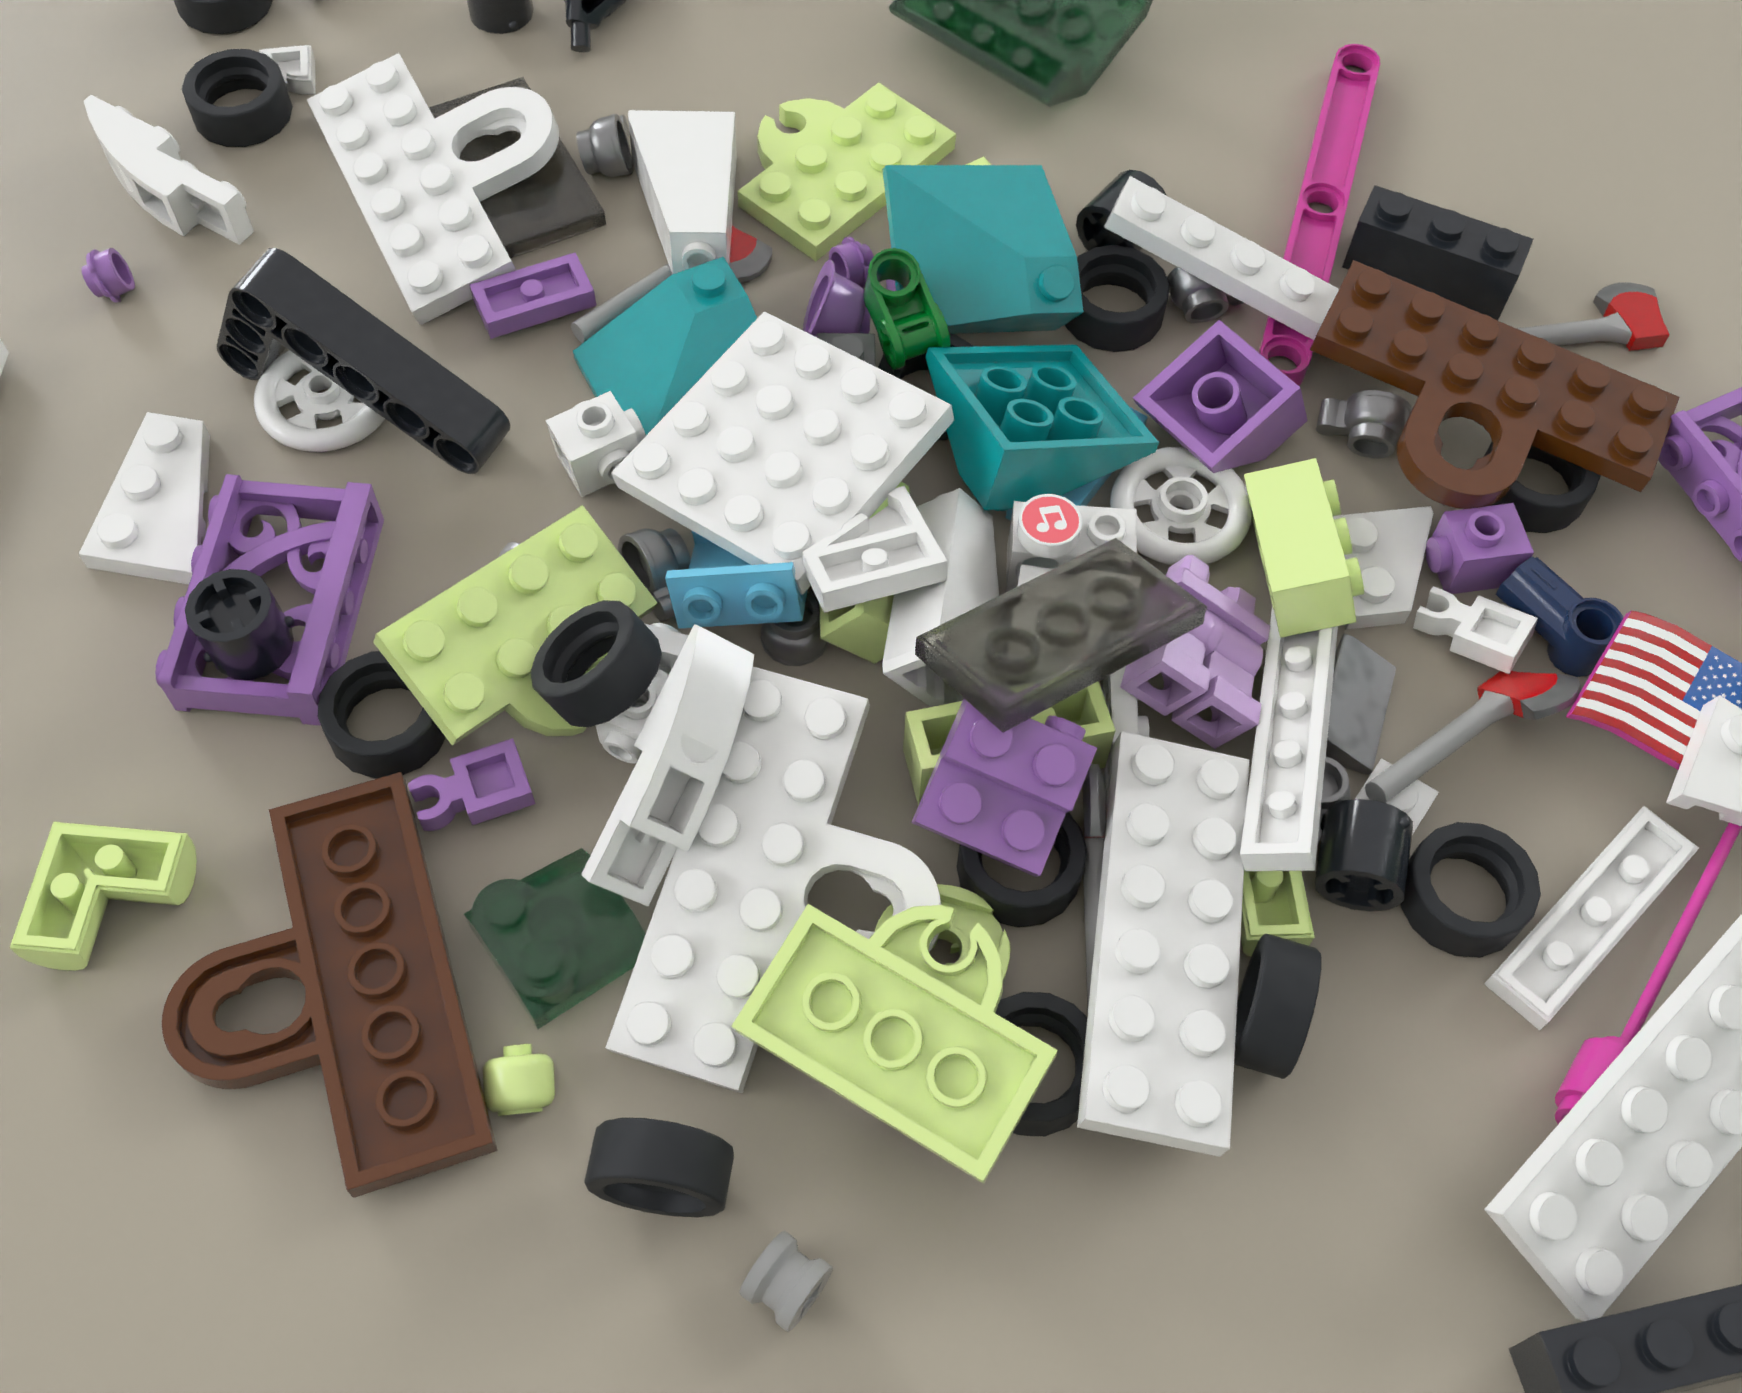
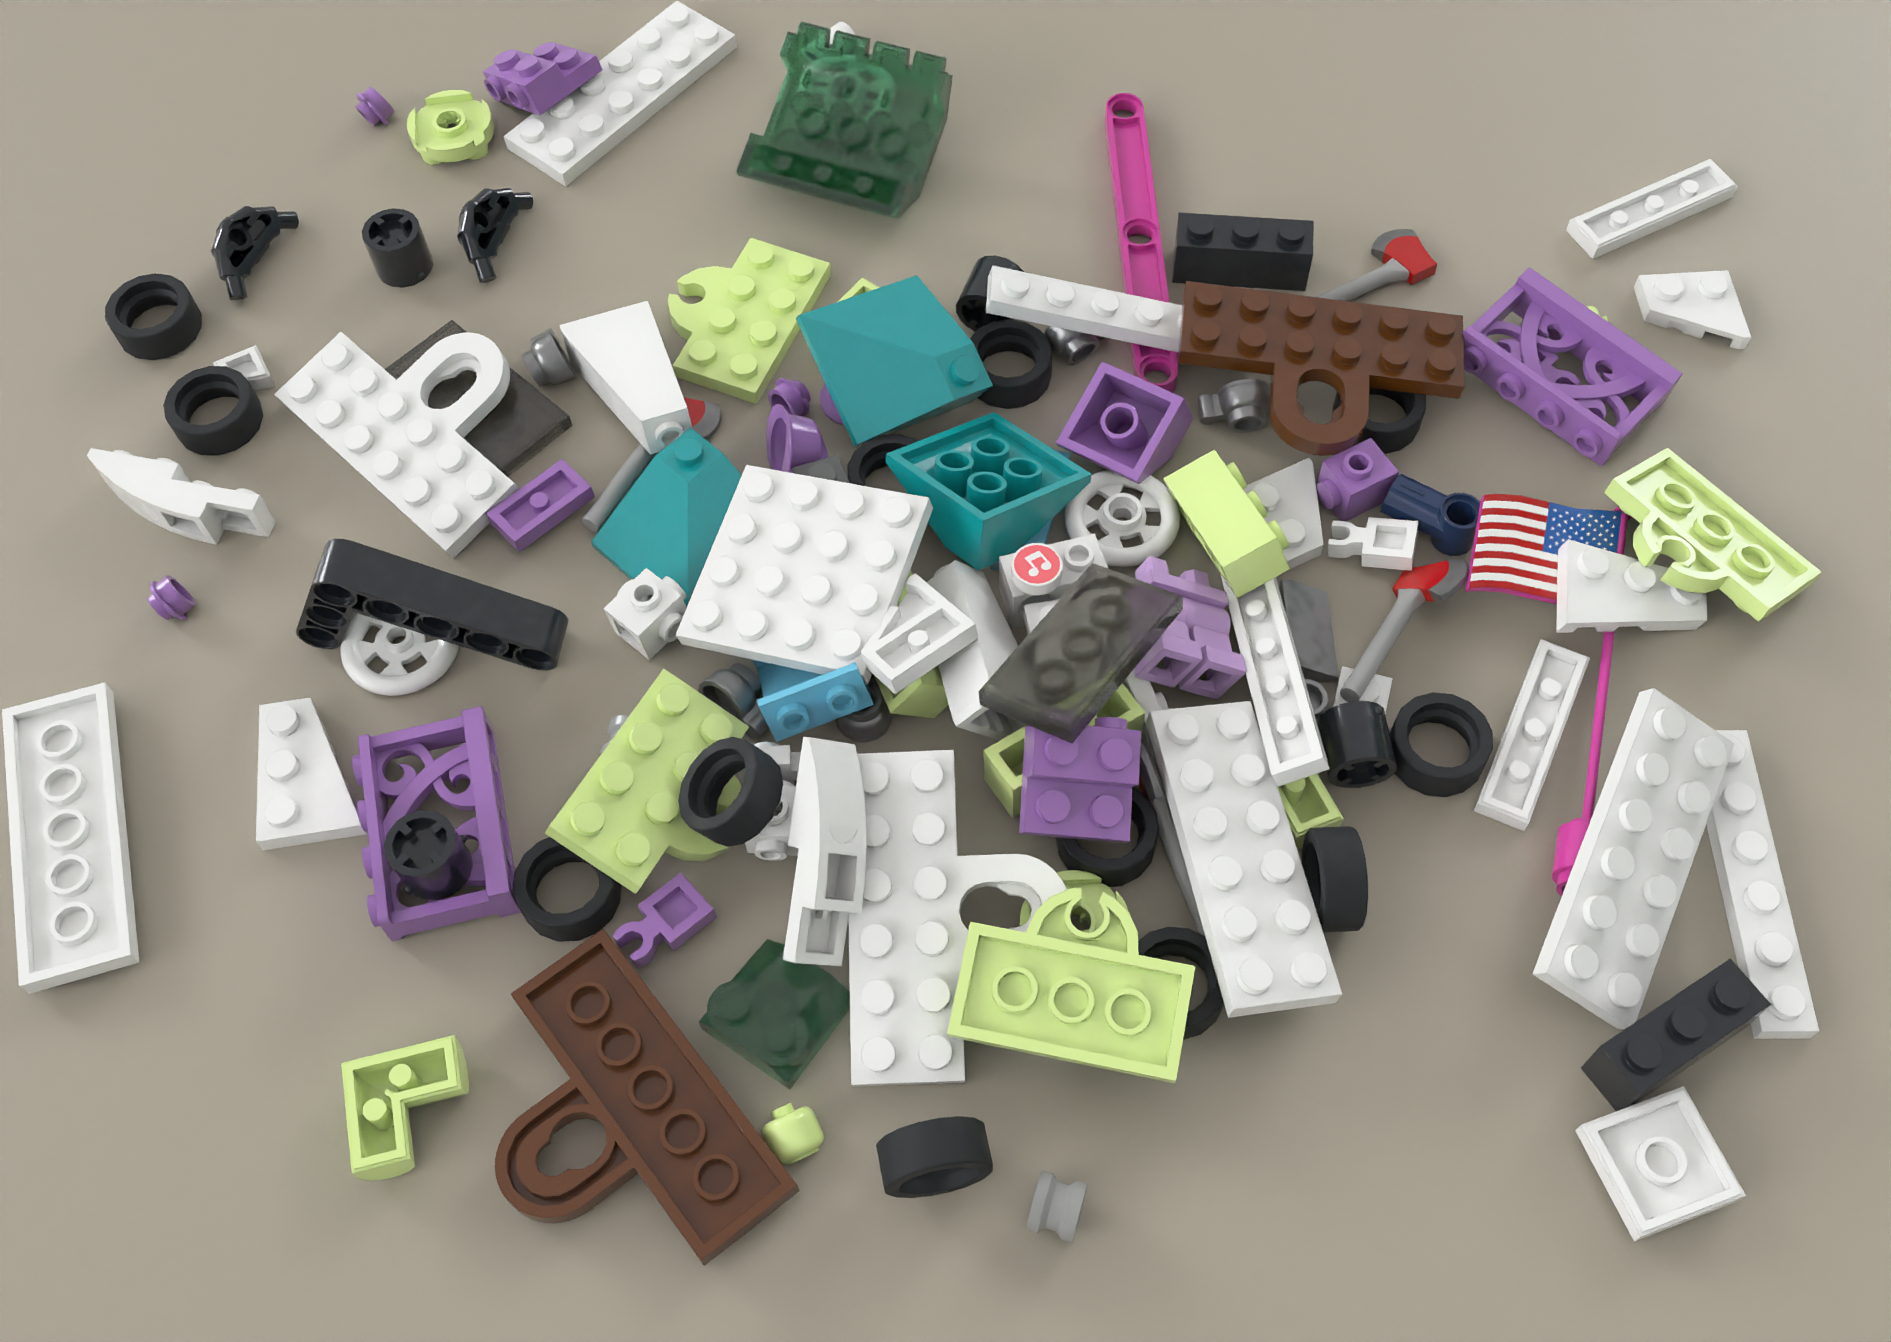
camera: 15 degrees left, 0 degrees up
(905, 318) = (860, 437): green piece -> none

